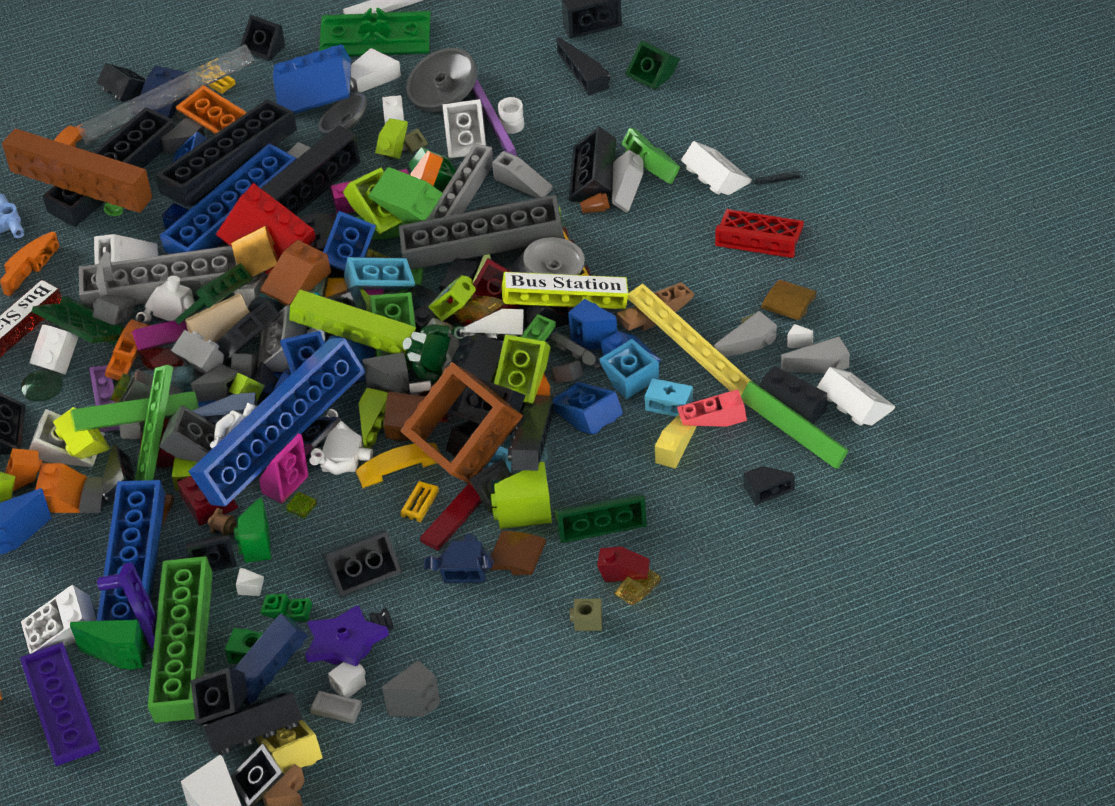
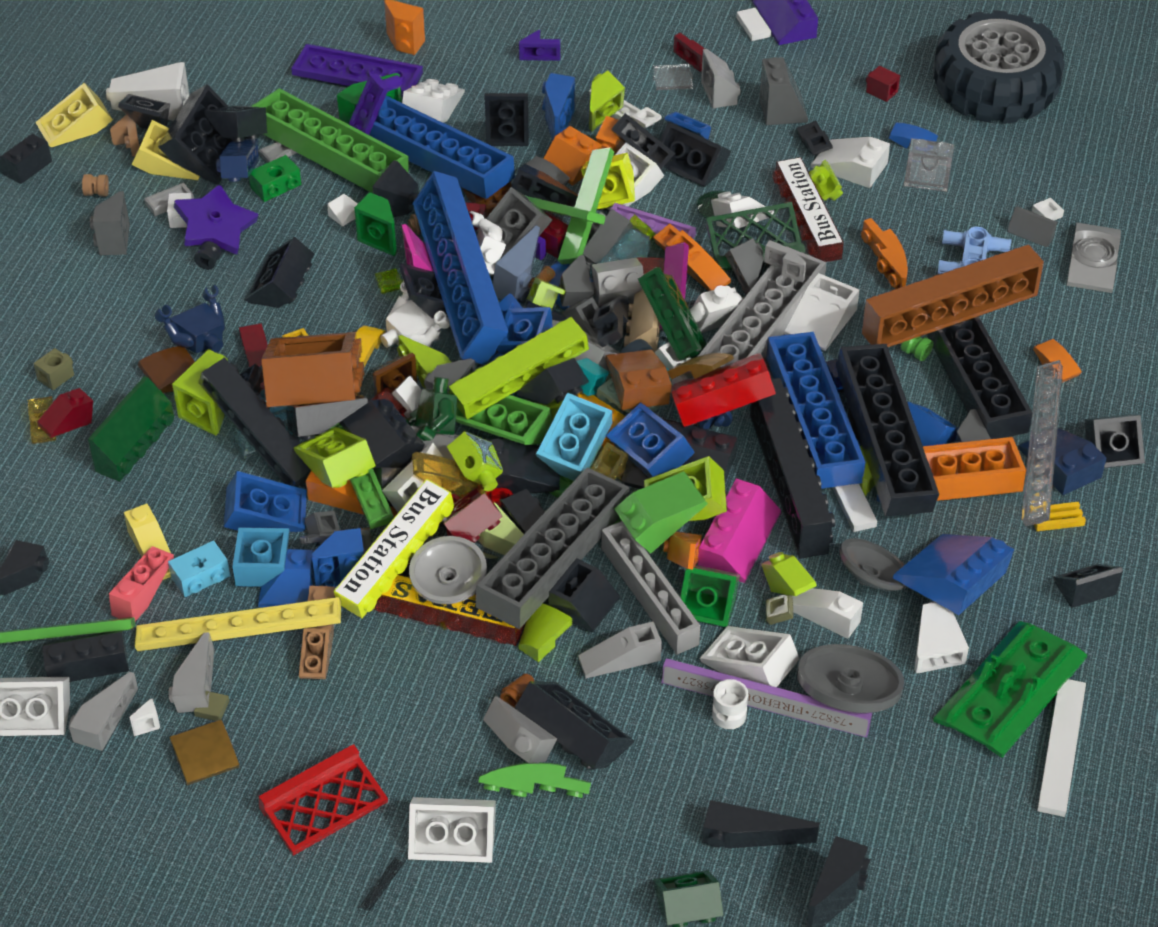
camera: 125 degrees right, 0 degrees up
(25, 429) = (639, 138): none -> black slope
(57, 538) = (507, 119): none -> black slope
(293, 608) = (296, 219): green slope -> none
(370, 760) = (95, 185): none -> medium nougat wheel

